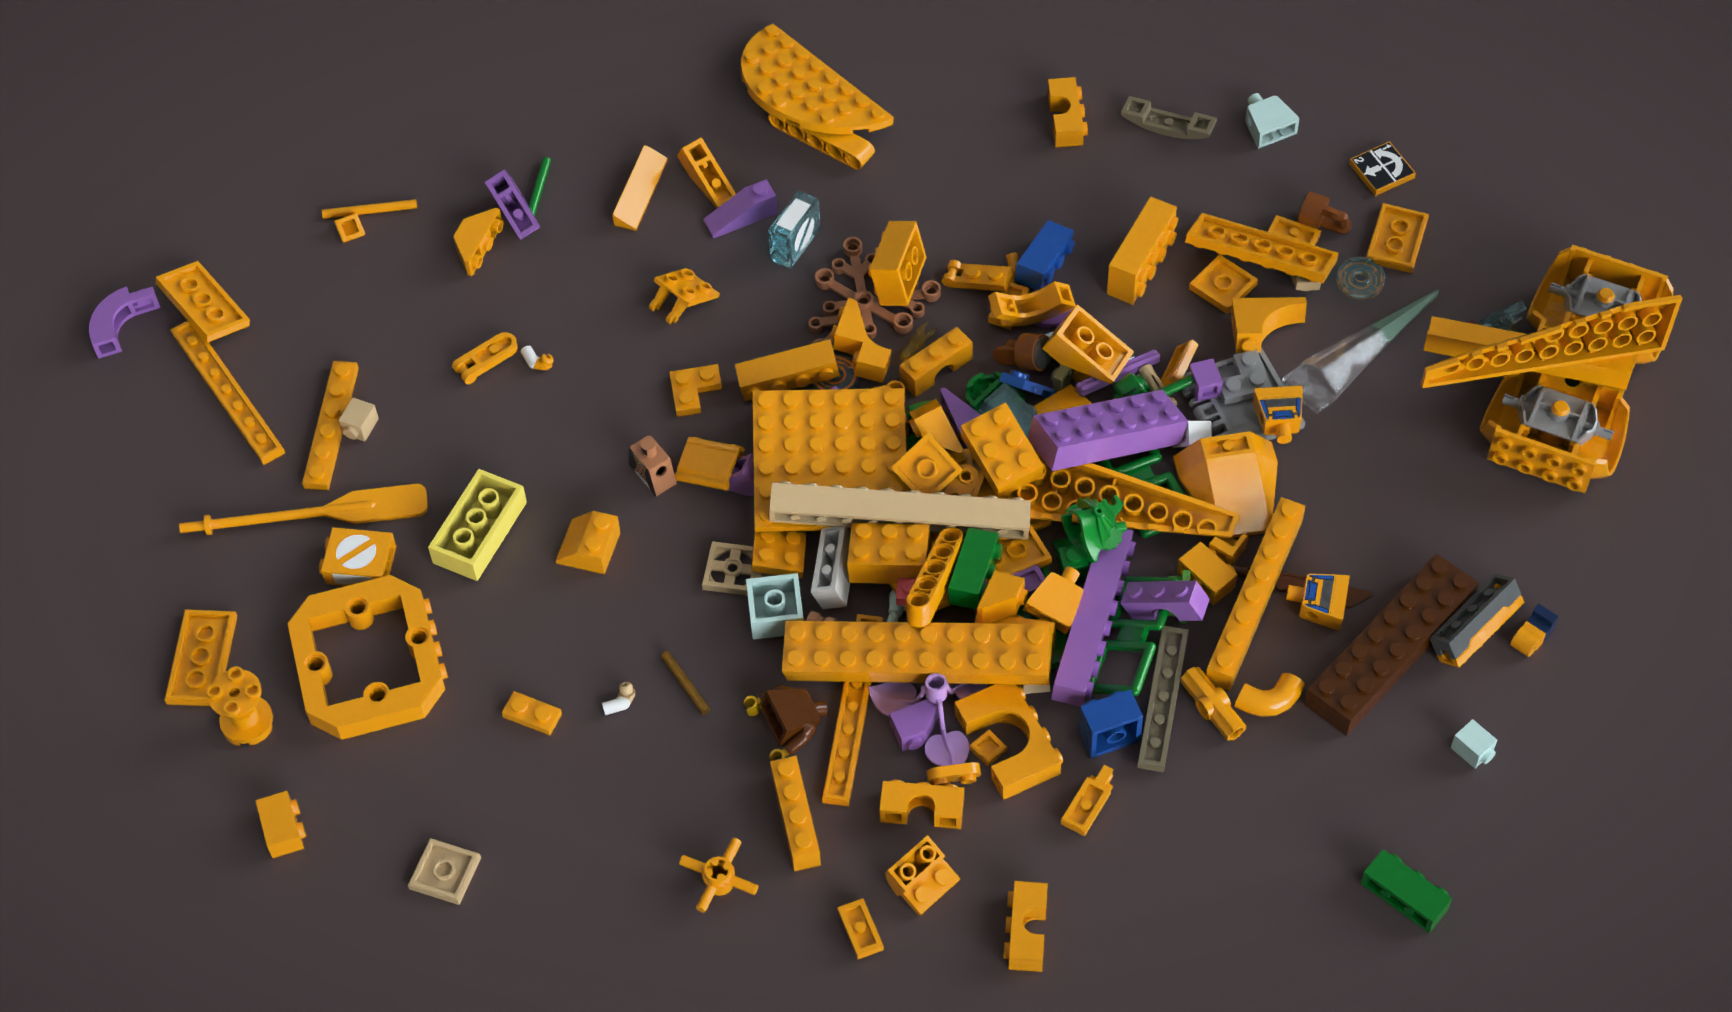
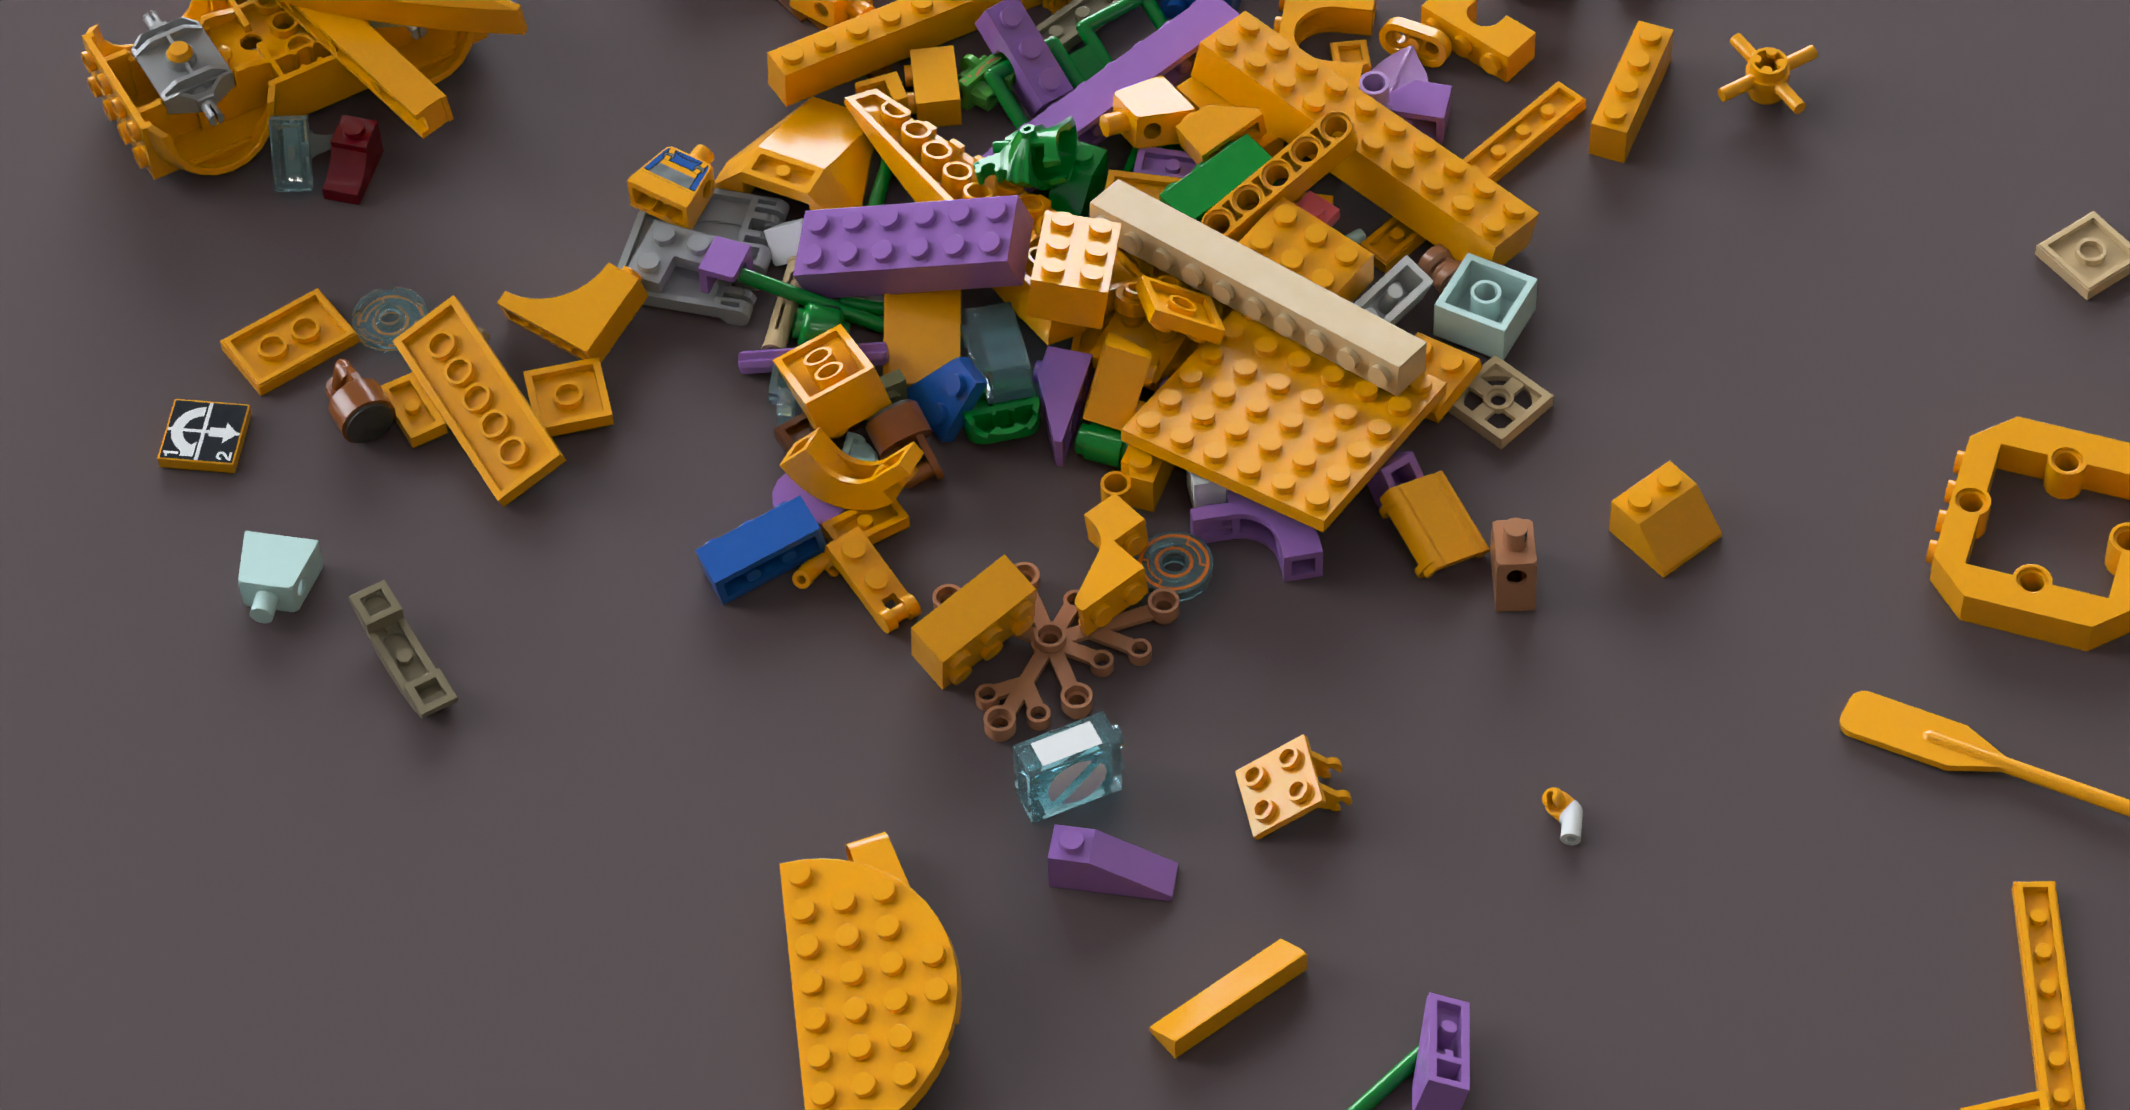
camera: 145 degrees left, 5 degrees down
(328, 429) = (1921, 887): light orange plate -> none
(356, 556) = (1991, 662): light orange brick -> none
(358, 419) = (1880, 857): tan brick -> none
(476, 237) = (1532, 1046): light orange slope -> none
(477, 524) = (1802, 606): light yellow brick -> none
(485, 356) = (1636, 855): light orange plate -> none
(531, 713) = (1873, 368): light orange plate -> none
(622, 701) = (1750, 321): arm -> none
(685, 682) = (1655, 305): pearl gold bar -> none
(690, 382) = (1375, 666): light orange plate -> none
(706, 172) = (1116, 954): light orange slope -> none
(788, 369) = (1237, 585): light orange brick -> none
(789, 715) = (1562, 186): reddish brown torso -> none
(916, 342) = (1028, 547): clear yellow piece -> none
(920, 370) = (1004, 490): light orange arch -> none
(1064, 97) = (543, 720): light orange arch -> none
(1142, 251) = (635, 472): light orange brick -> none
(1179, 362) = (727, 328): light orange tile -> none
(1334, 368) = (551, 226): clear plate -> none

